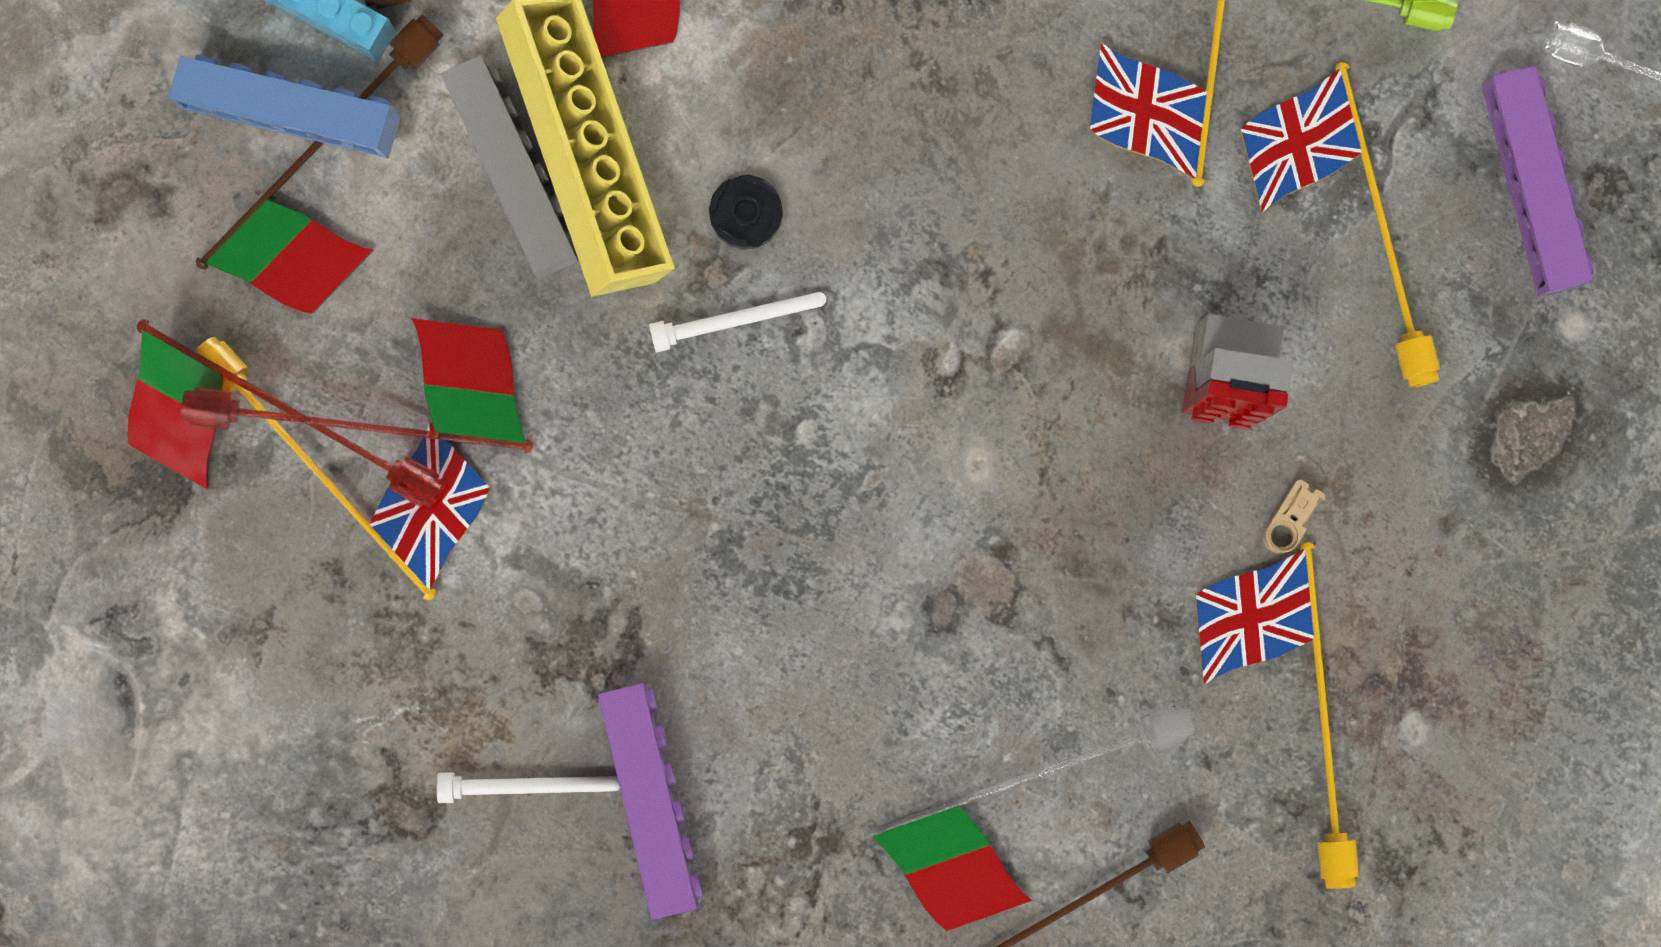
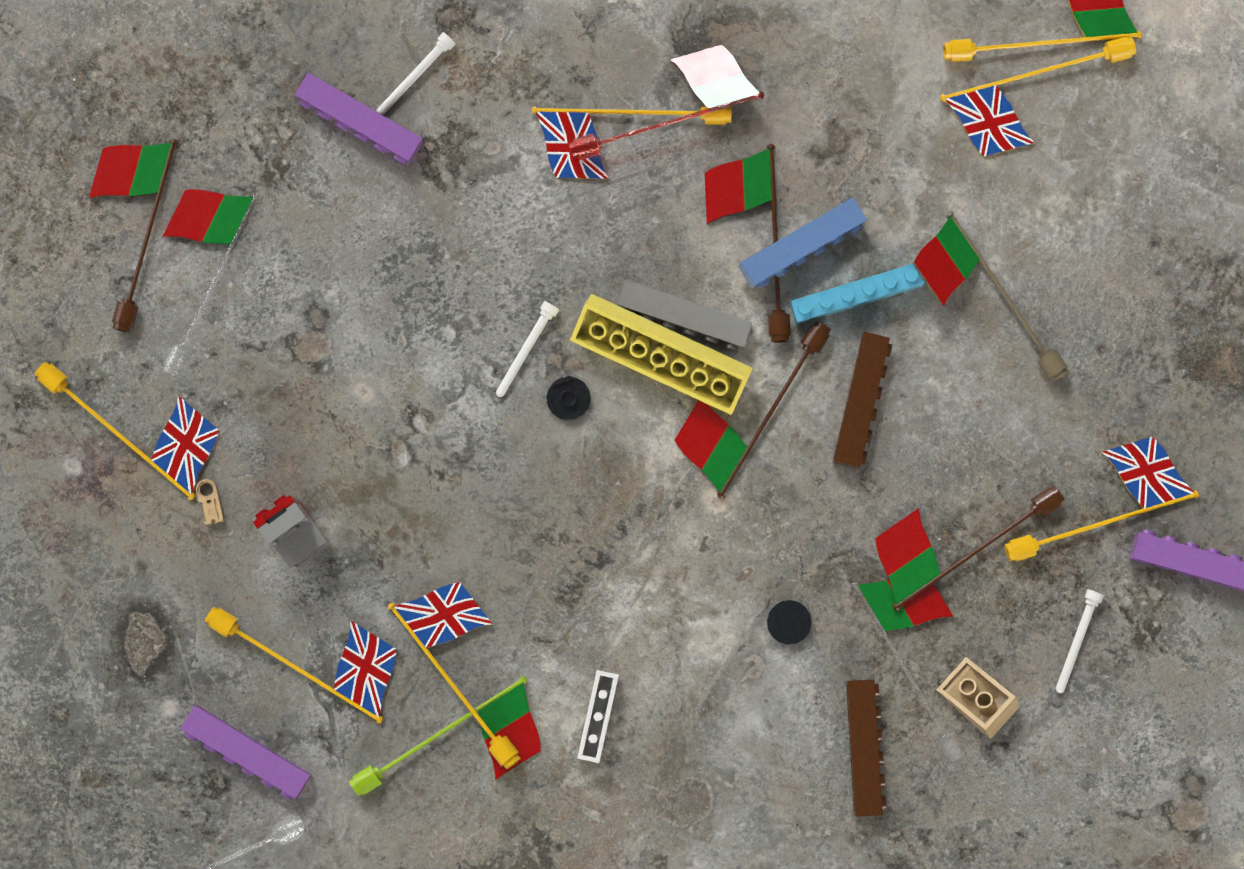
camera: 140 degrees right, 0 degrees up
(464, 387) = (607, 206): flag -> none

